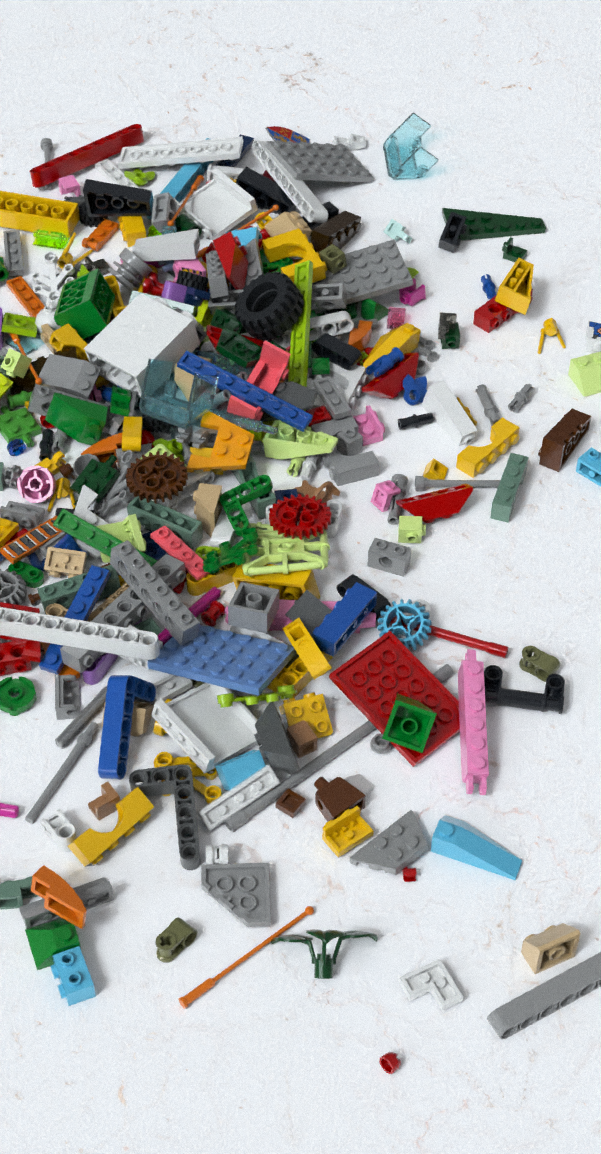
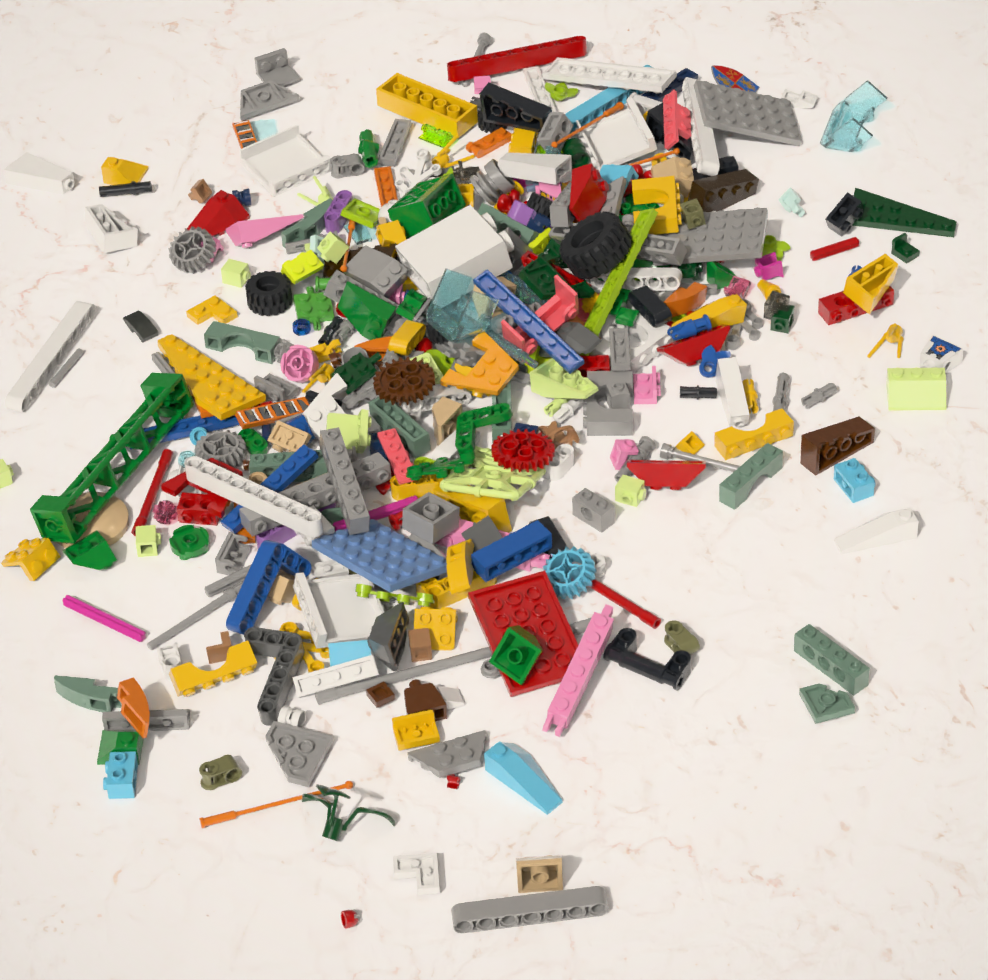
camera: 25 degrees right, 5 degrees down
(91, 534) = (322, 420): green tile -> none
(266, 180) = (676, 120): none -> coral bracket
(425, 314) = (767, 287): none -> yellow cone
(455, 264) = (833, 249): none -> red axle

